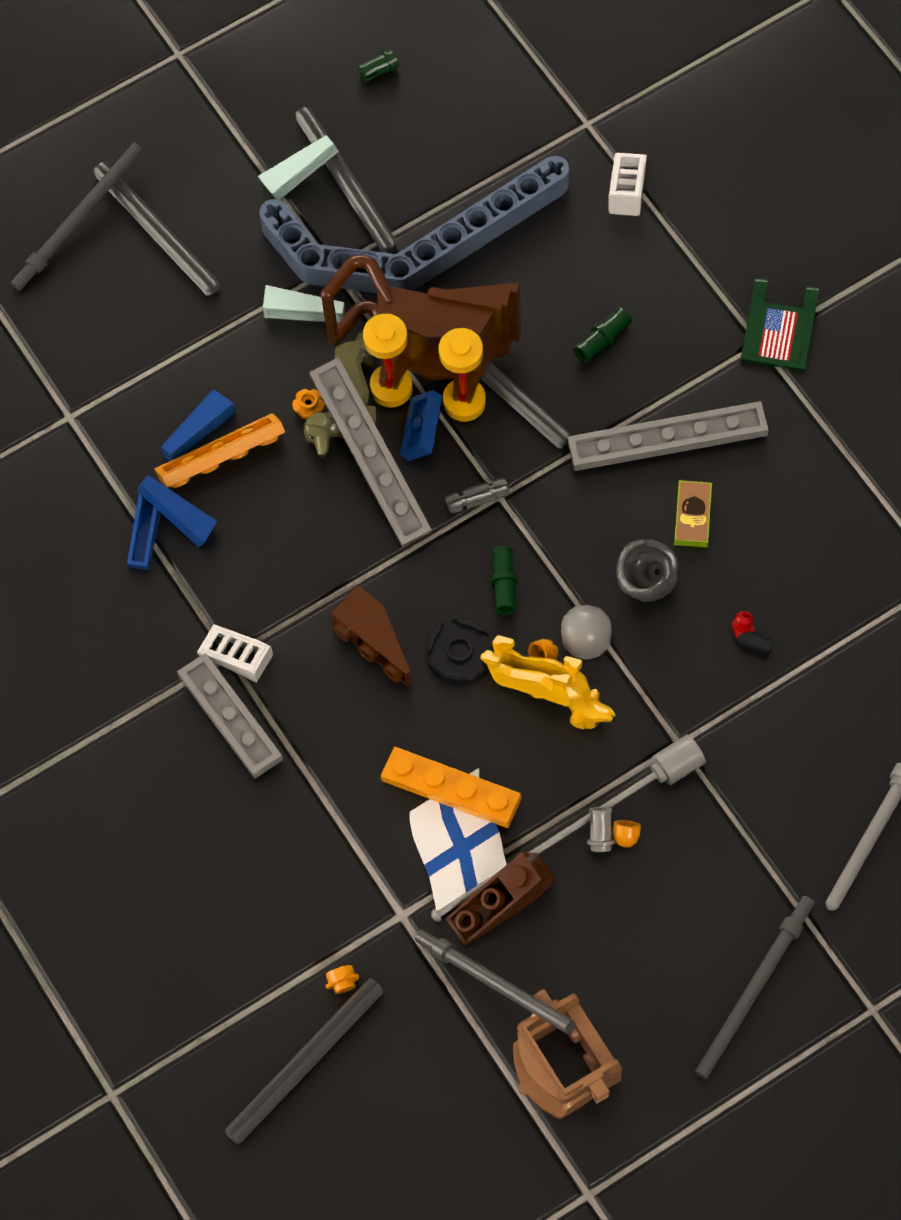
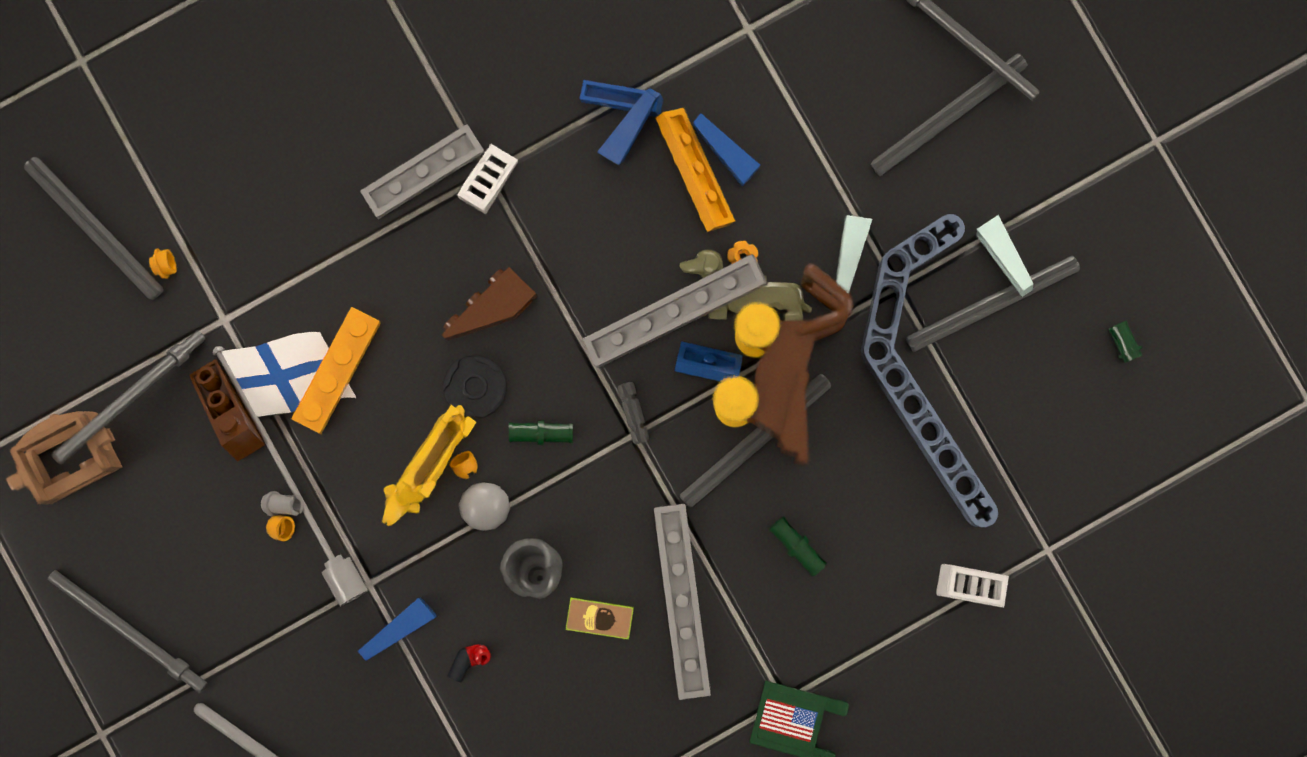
camera: 90 degrees right, 20 degrees up
(720, 702) = (405, 623): none -> blue piece

